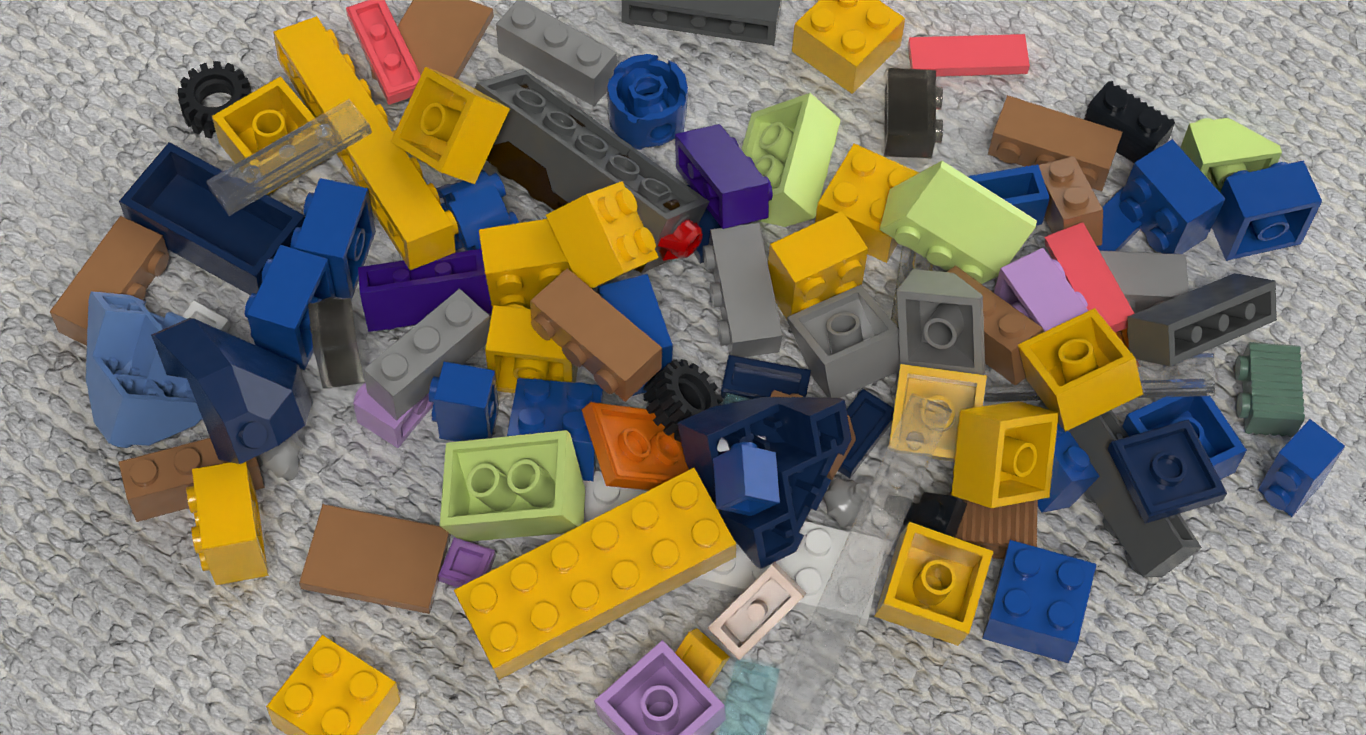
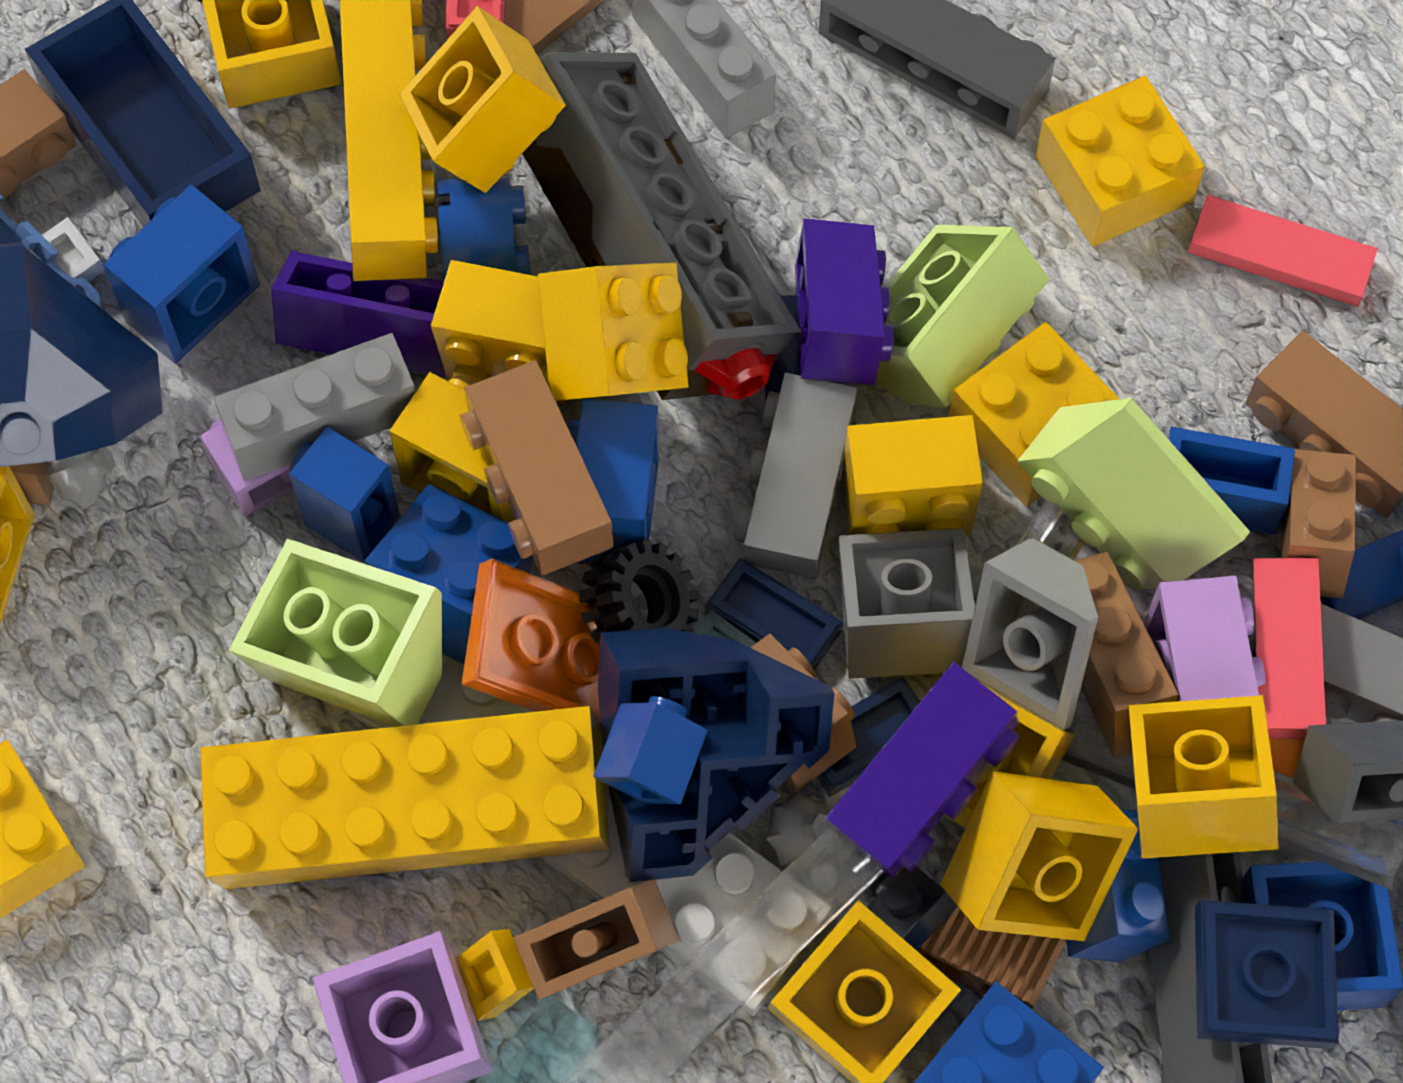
camera: 25 degrees right, 5 degrees up
(289, 157) = (262, 67): clear tile -> none
(336, 342) = (214, 340): clear smoke piece -> none
(339, 229) = (285, 193): blue brick -> none
(375, 559) = (141, 659): medium nougat tile -> none
(465, 563) = (255, 712): medium lavender tile -> none
(647, 101) = (791, 157): blue brick -> none
(911, 113) = (1155, 305): clear smoke piece -> none
(918, 427) = (925, 771): none -> dark purple brick

